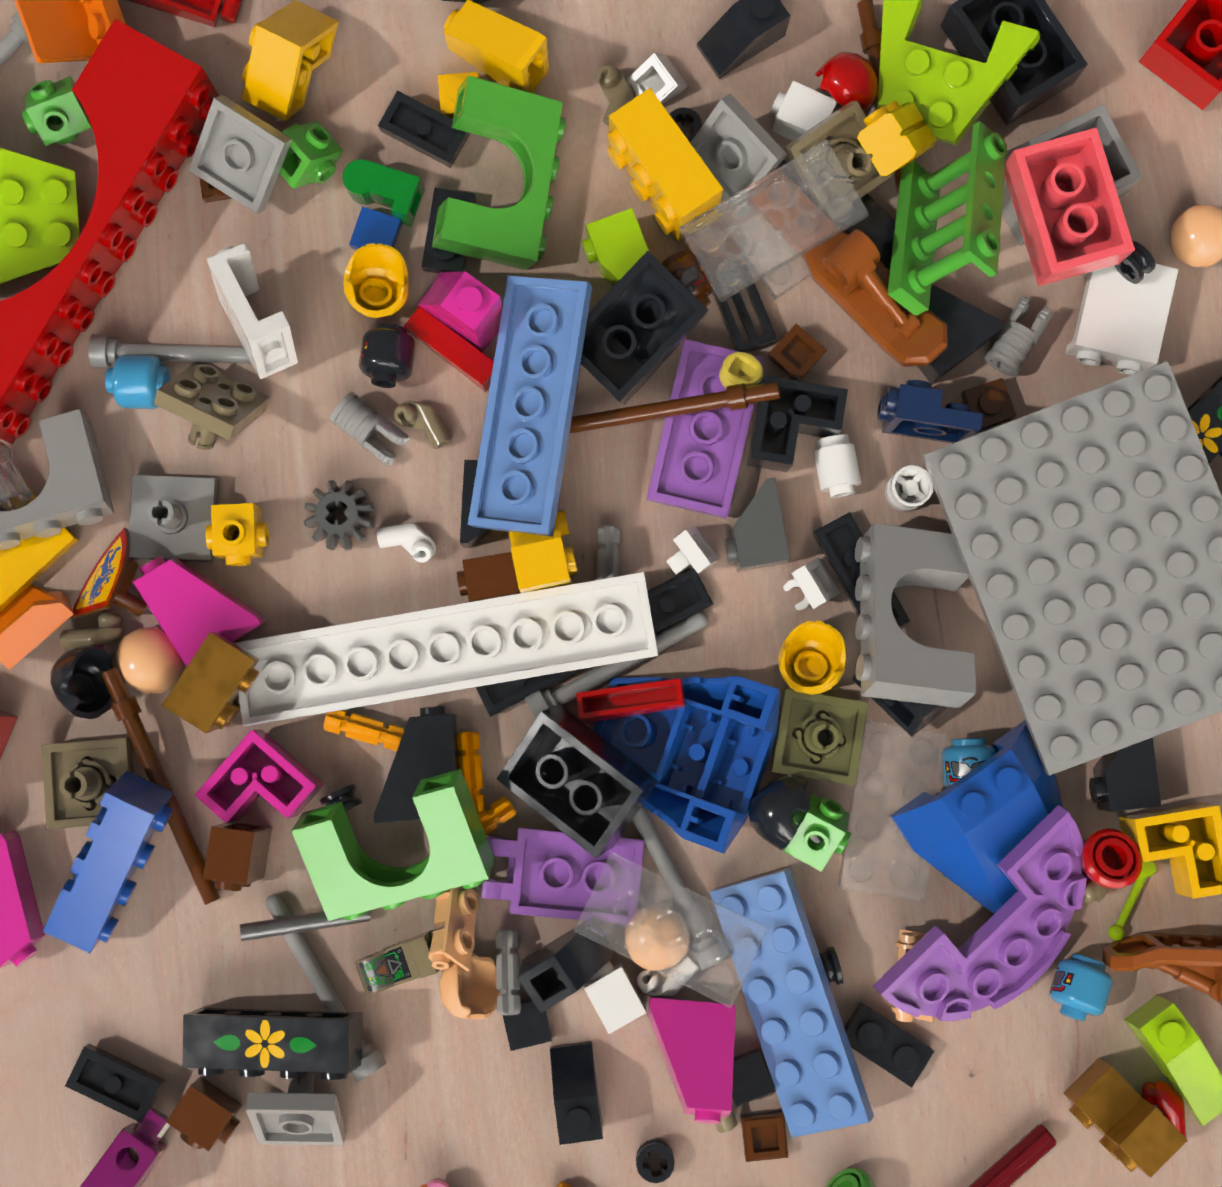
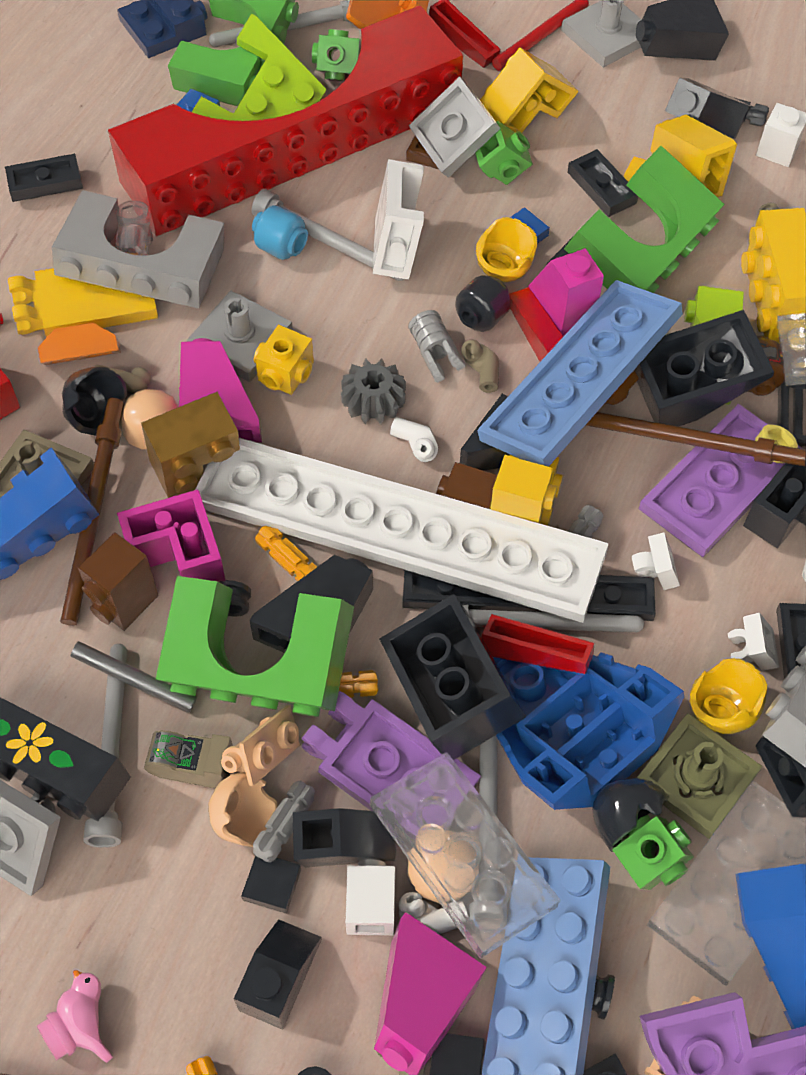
camera: 30 degrees right, 25 degrees down
(110, 581) = (162, 356): shield -> none
(211, 403) = (324, 268): dark tan plate -> none
(386, 186) = (549, 203): green leg -> none
(471, 766) = (361, 632): light orange axle -> none
(759, 533) = (727, 577): dark grey slope -> none

